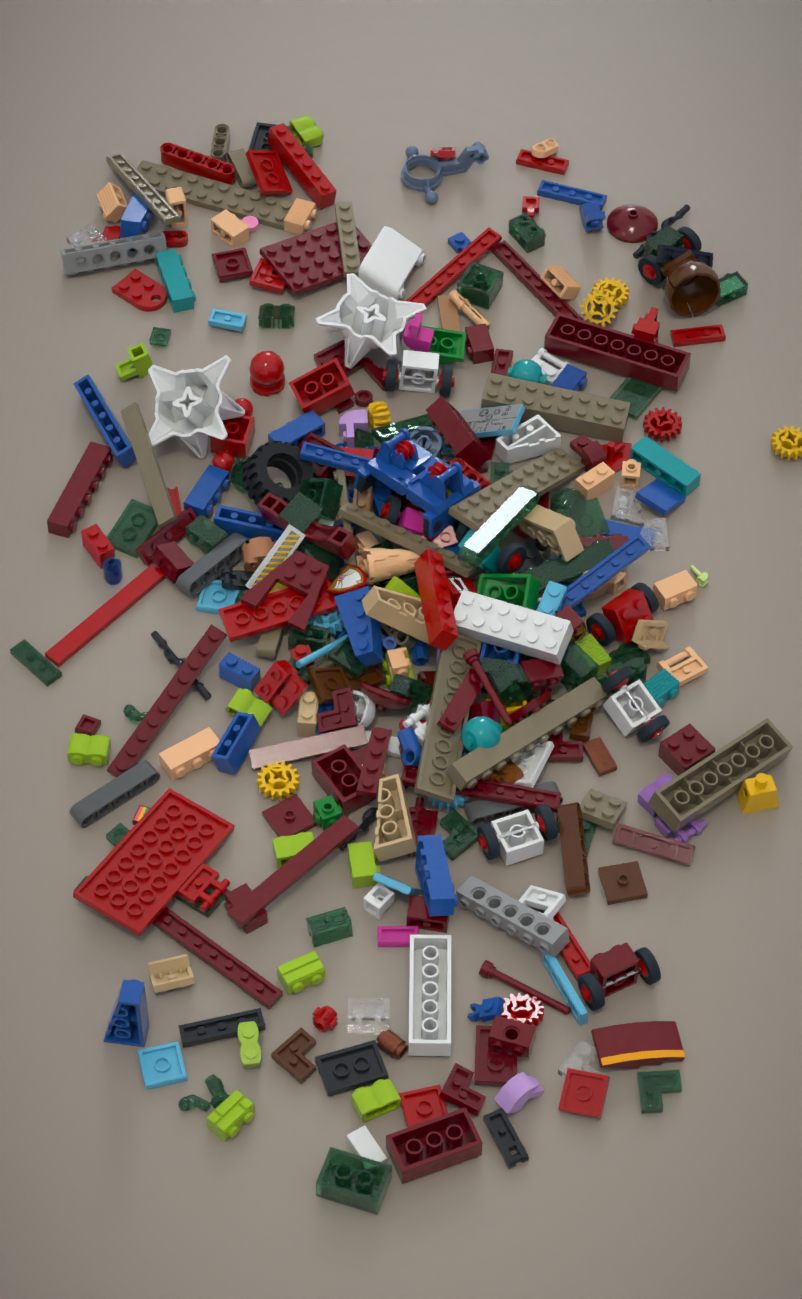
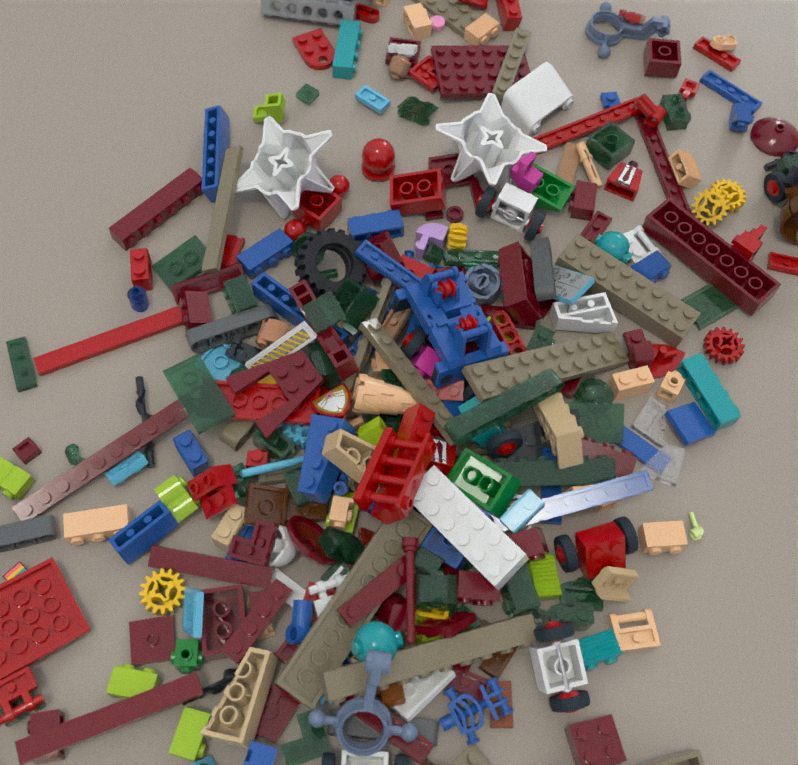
camera: 20 degrees right, 10 degrees up
(187, 705) = (126, 467): none -> medium azure plate
(223, 619) = (199, 394): none -> clear green tile
(236, 261) = (405, 49): none -> white plate
(238, 279) = (399, 66): none -> medium nougat head
(316, 777) = (193, 612): none -> medium azure tile
(419, 599) = (381, 459): none -> red fence
(472, 414) = (543, 269): none -> dark grey beam
(492, 184) = (662, 57): none -> dark red brick
(494, 728) = (375, 664): none -> sand blue piece
(508, 240) = (653, 113): none -> red piece
(509, 312) = (624, 180): none -> red torso
(571, 774) = (454, 718): none -> blue piece

